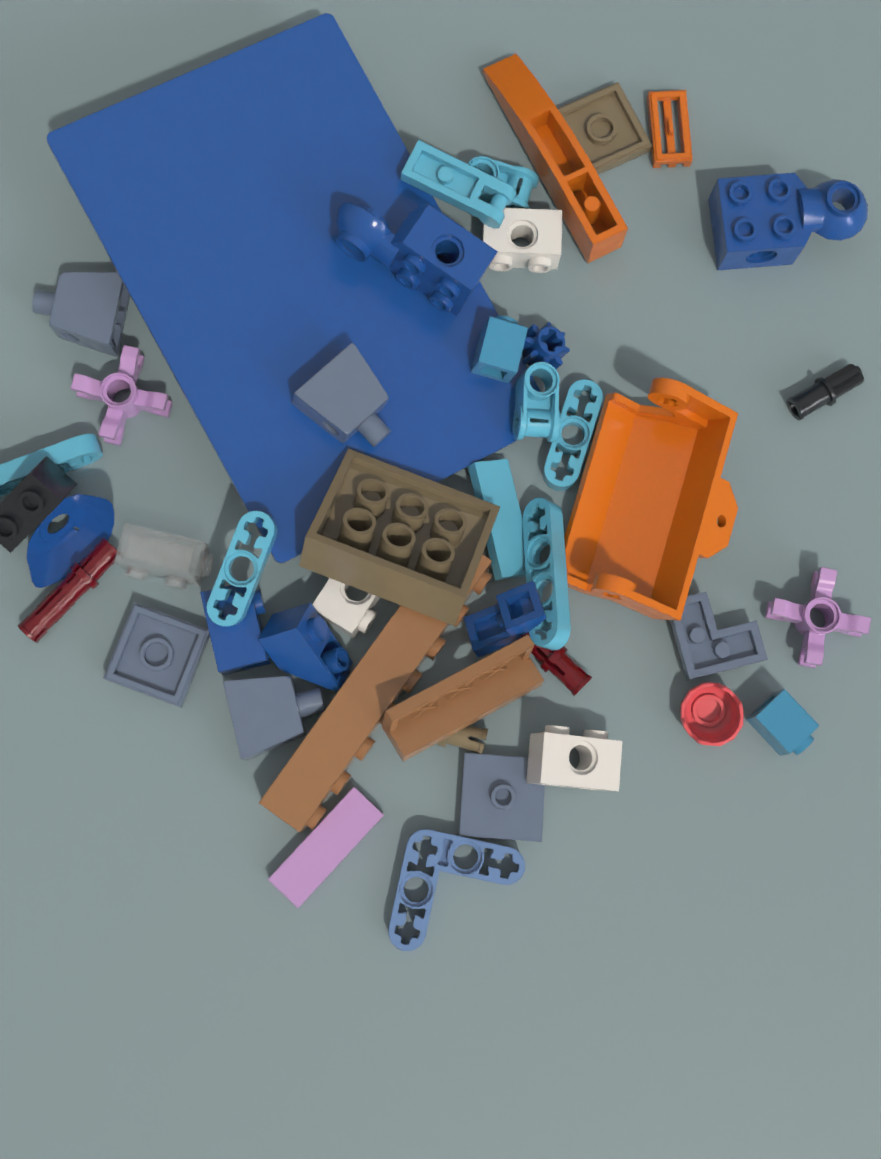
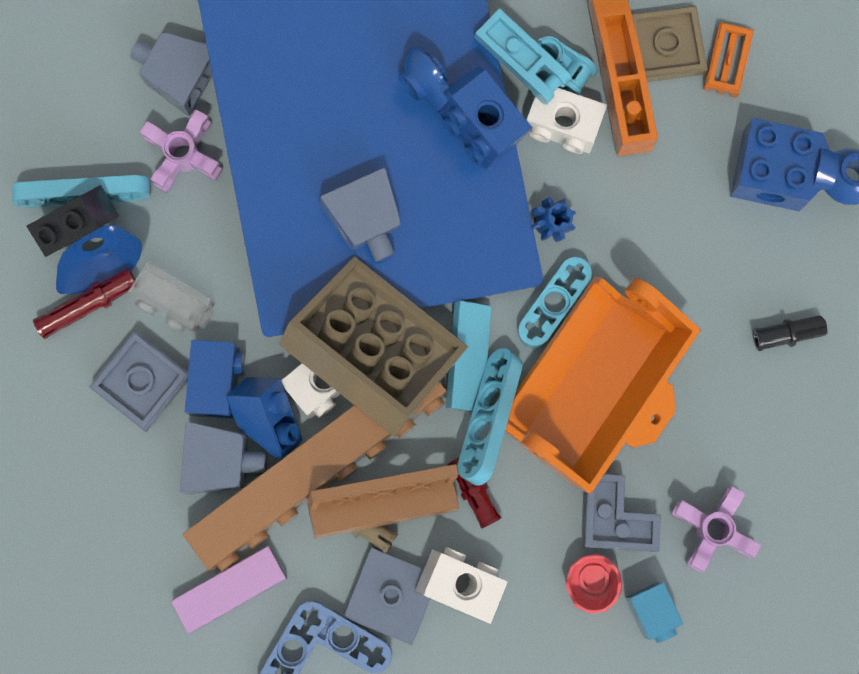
camera: 25 degrees right, 0 degrees up
(241, 601) = (221, 358): medium azure beam -> none
(499, 348) = (512, 209): dark azure brick -> none
(514, 616) = (442, 446): blue slope -> none
(537, 412) = (528, 269): medium azure piece -> none

